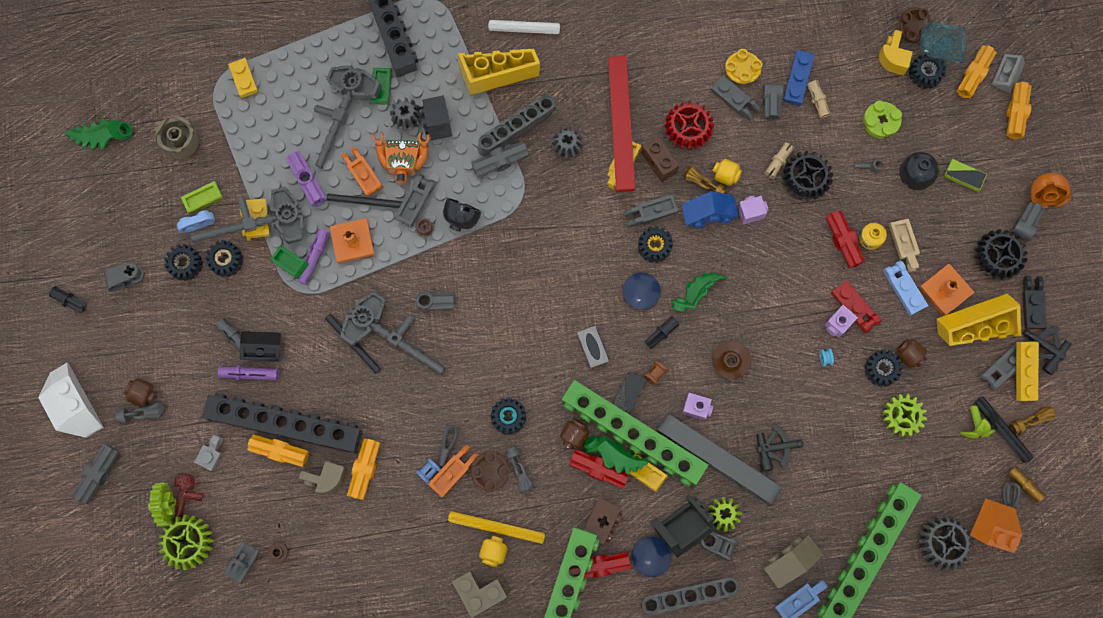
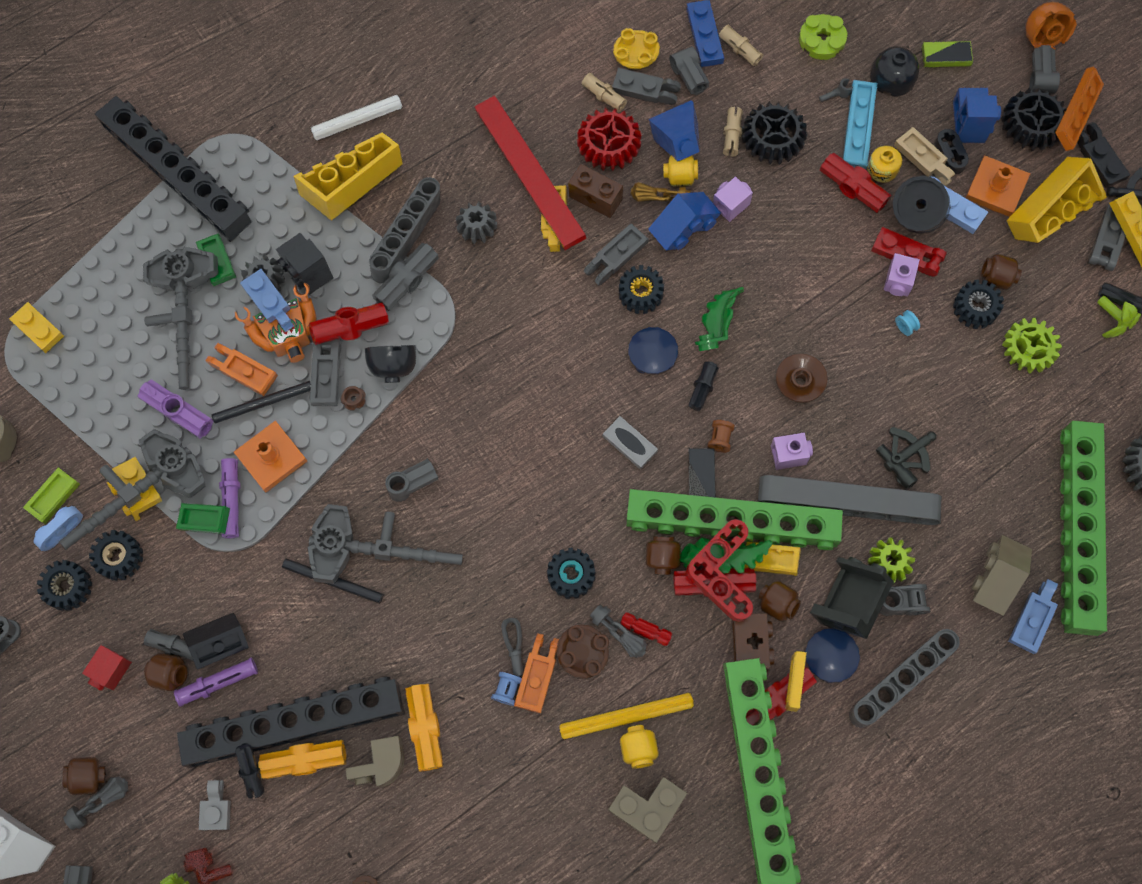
camera: 25 degrees left, 5 degrees down
(184, 330) = (106, 668): none -> red brick
(219, 351) = (165, 672): none -> reddish brown head
(241, 441) = (249, 770): none -> black axle
(399, 133) = (267, 299): none -> medium blue plate
(445, 174) = (348, 323): none -> red piece
(538, 477) = (646, 629): none -> red axle
(600, 459) = (711, 566): none -> red beam
(614, 562) = (795, 681): none -> yellow tile
(635, 503) = (779, 601): none -> reddish brown head
(703, 89) = (604, 92): none -> tan pin
(739, 143) = (677, 131): none -> blue slope
(869, 276) = (914, 191): none -> black wheel
(872, 197) = (859, 123): none -> medium azure tile
(932, 248) = (955, 150): none -> black beam
(957, 230) = (975, 114): none -> blue brick
(1036, 262) = (1079, 108): none -> orange tile

